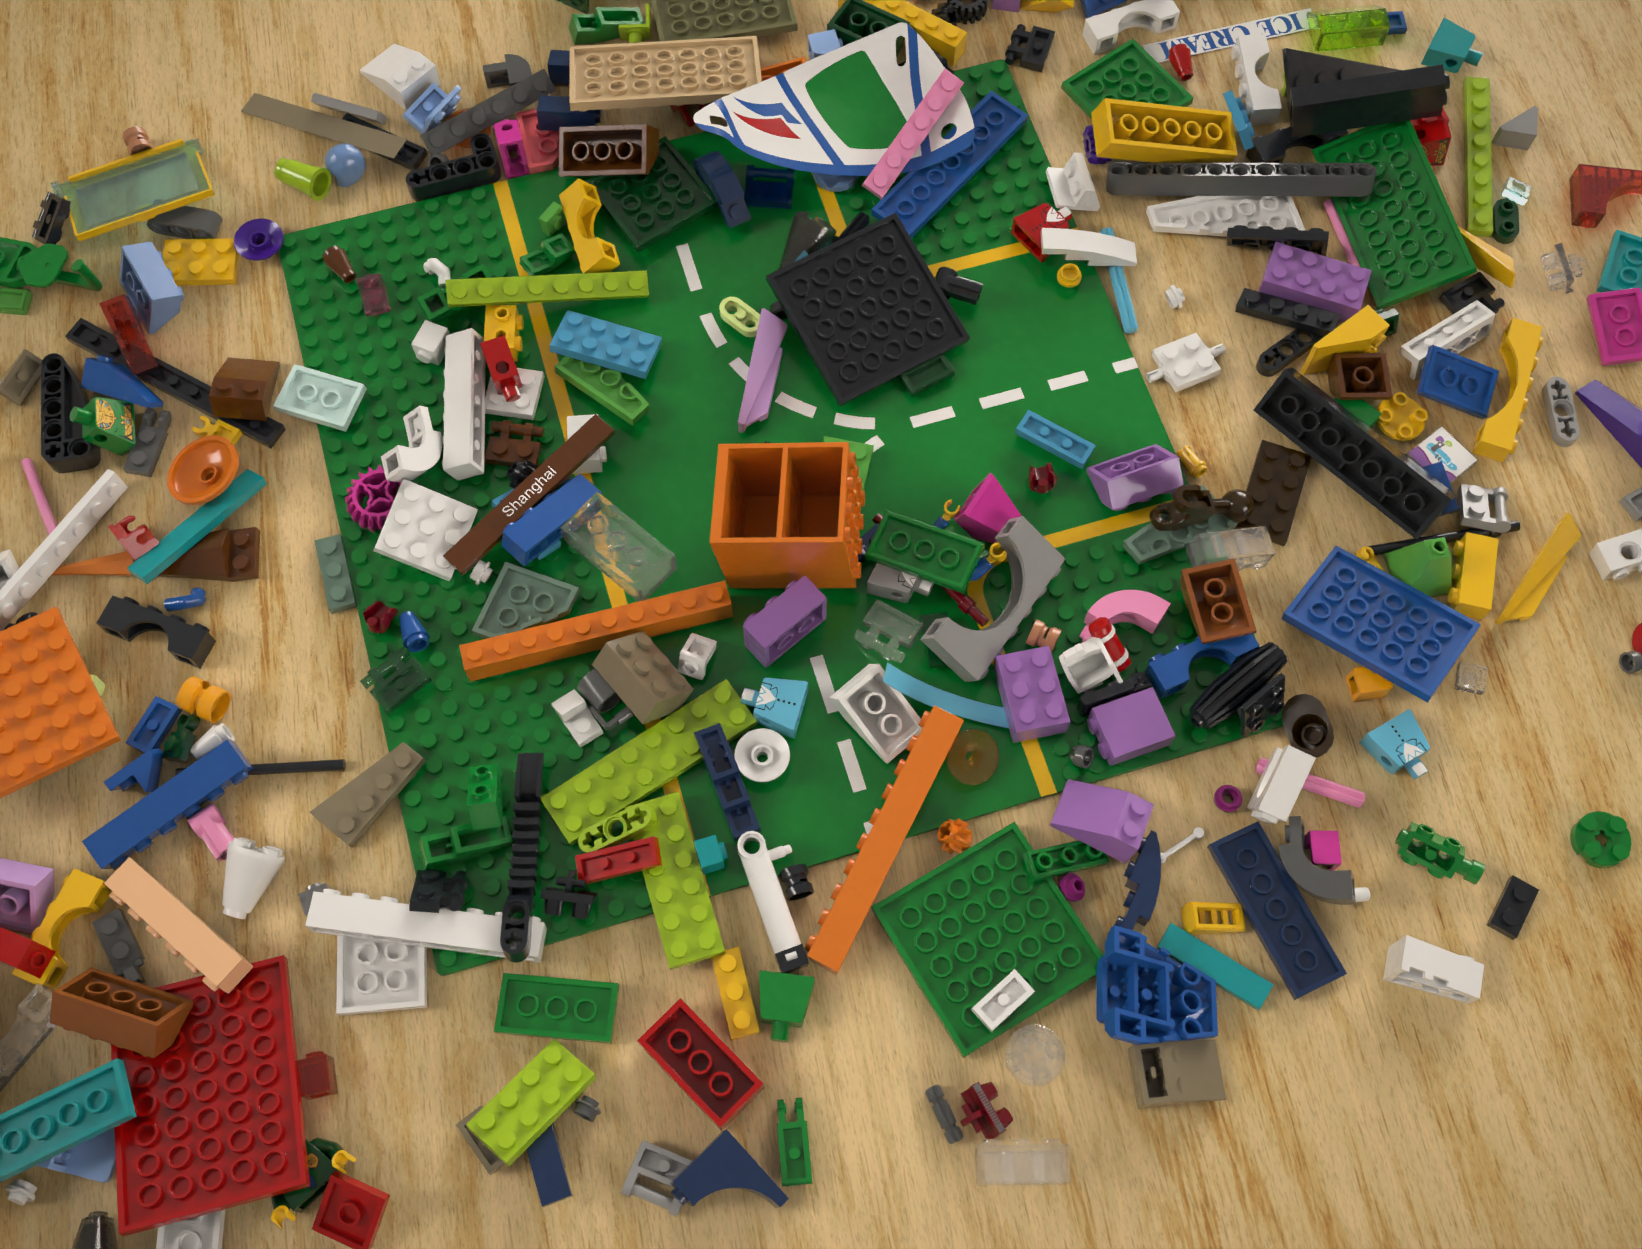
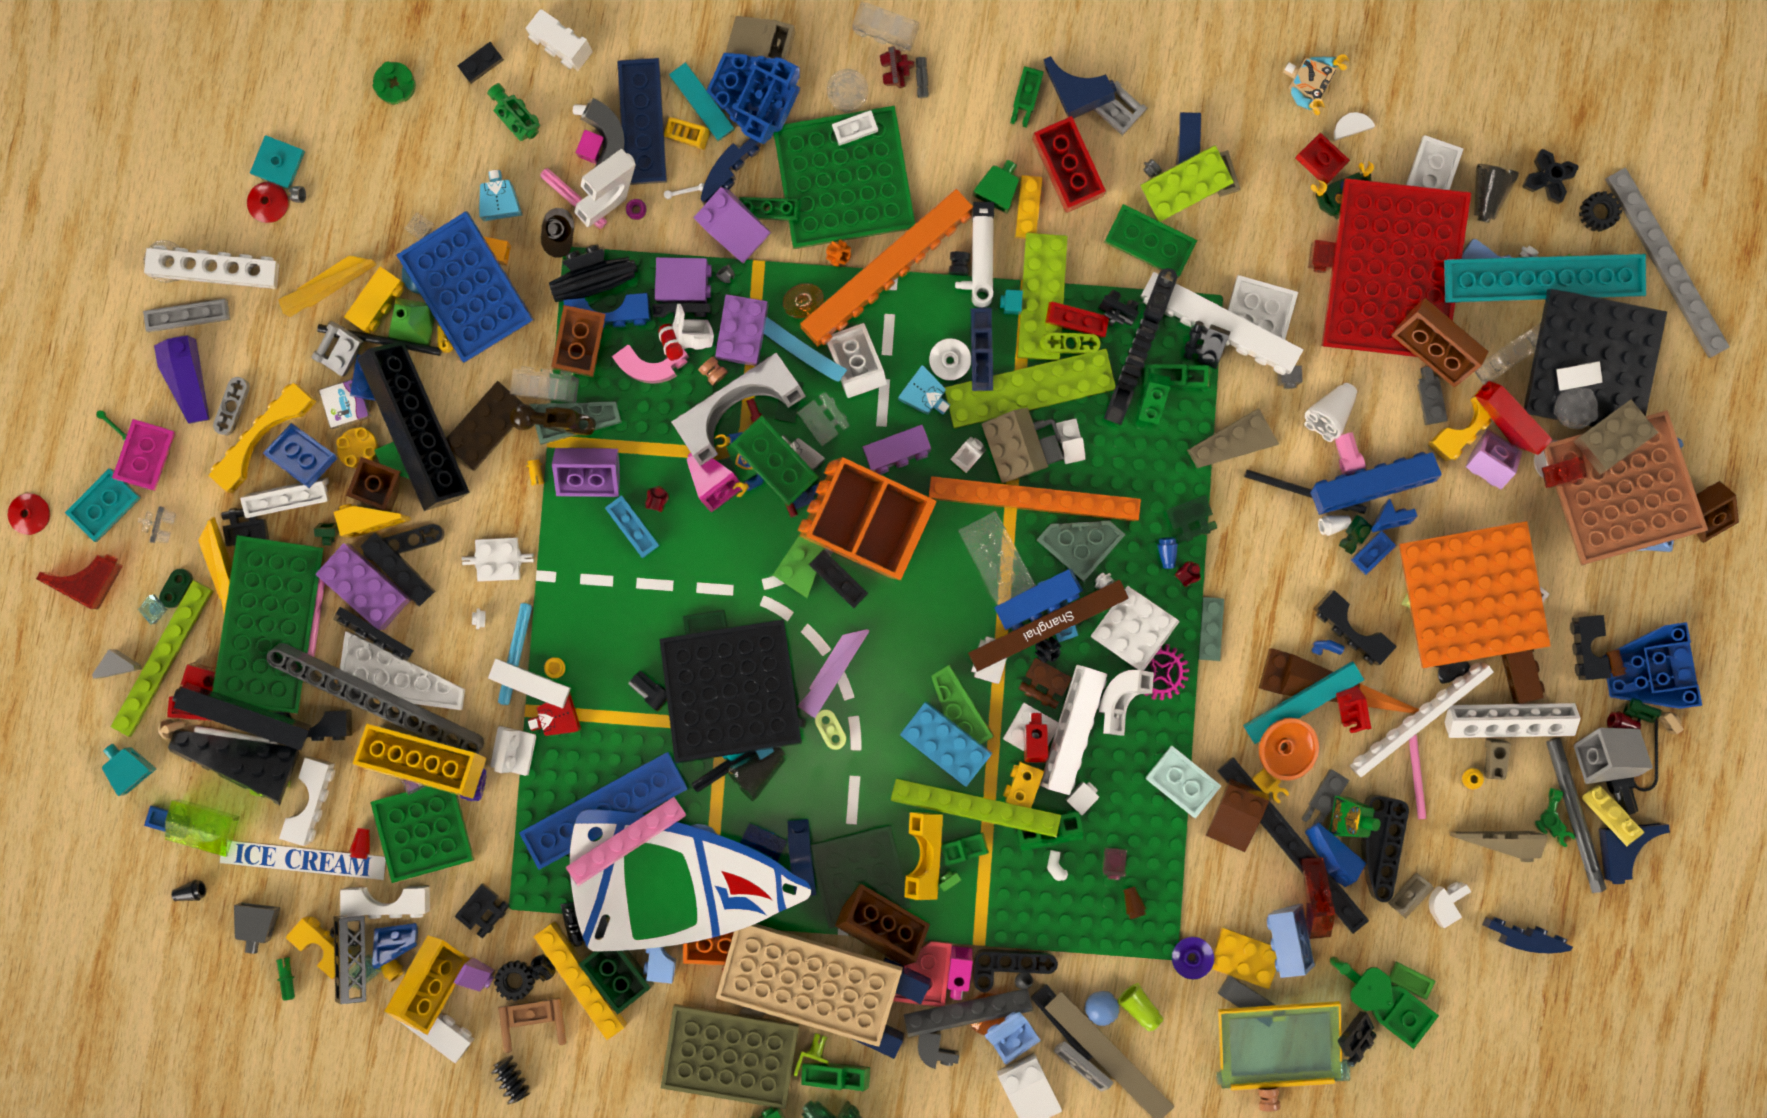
camera: 155 degrees left, 20 degrees up
(178, 925) = (1389, 392): light nougat brick -> none
(206, 700) = (1332, 557): light orange wheel -> none
(1072, 887) = (773, 188): magenta plate -> none
(1240, 119) = (345, 759): dark azure plate -> none

